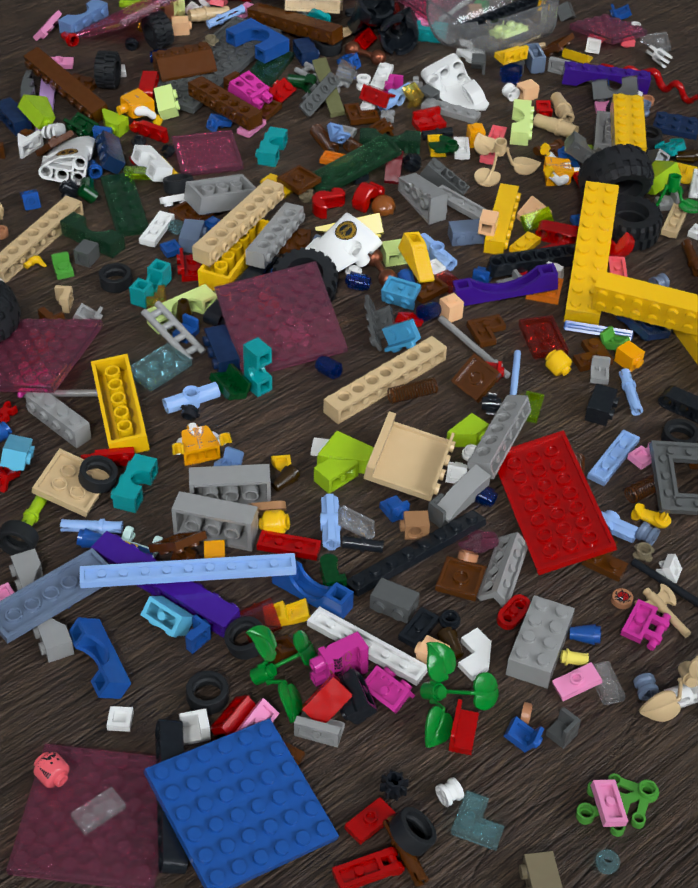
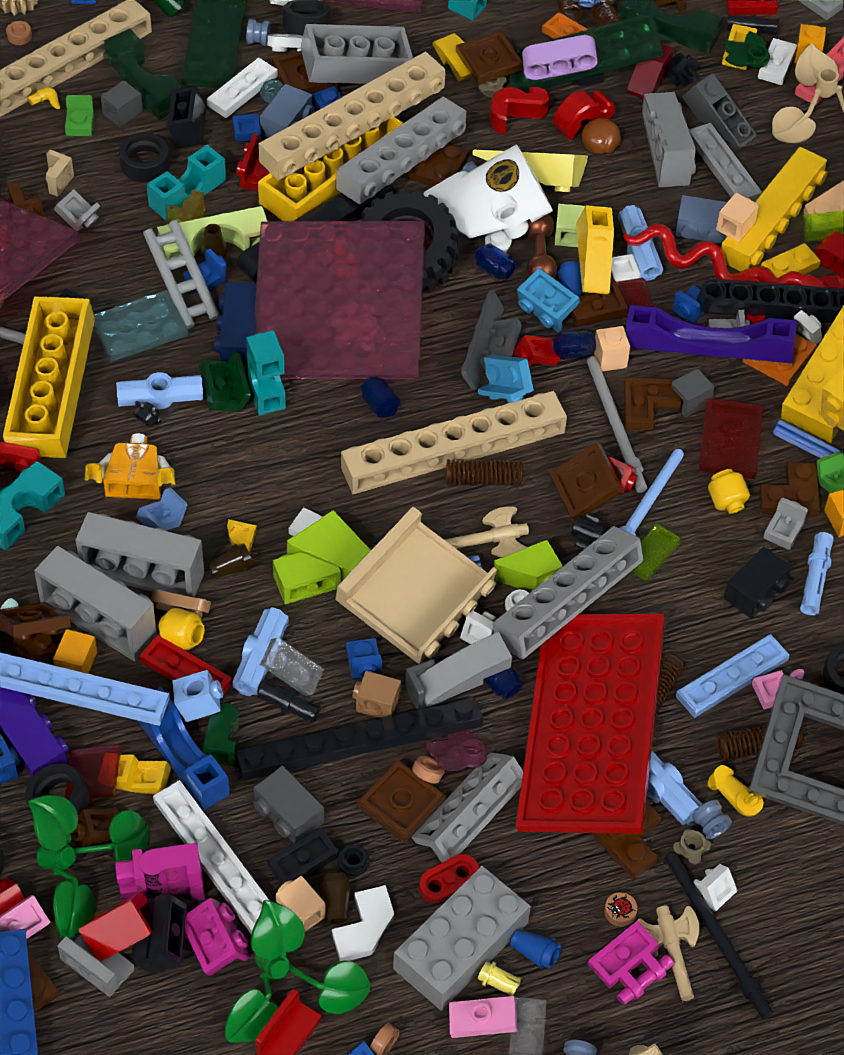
camera: 20 degrees right, 10 degrees up
(132, 249) = (186, 117): none -> black brick
(152, 198) = (257, 32): none -> sand blue wheel
(308, 552) = (197, 695): none -> light blue brick
(342, 168) = (559, 57): none -> lavender beam
(439, 419) = (503, 533): none -> tan piece
(466, 254) = (717, 256): none -> red animal
(510, 316) = (694, 391): none -> dark grey panel

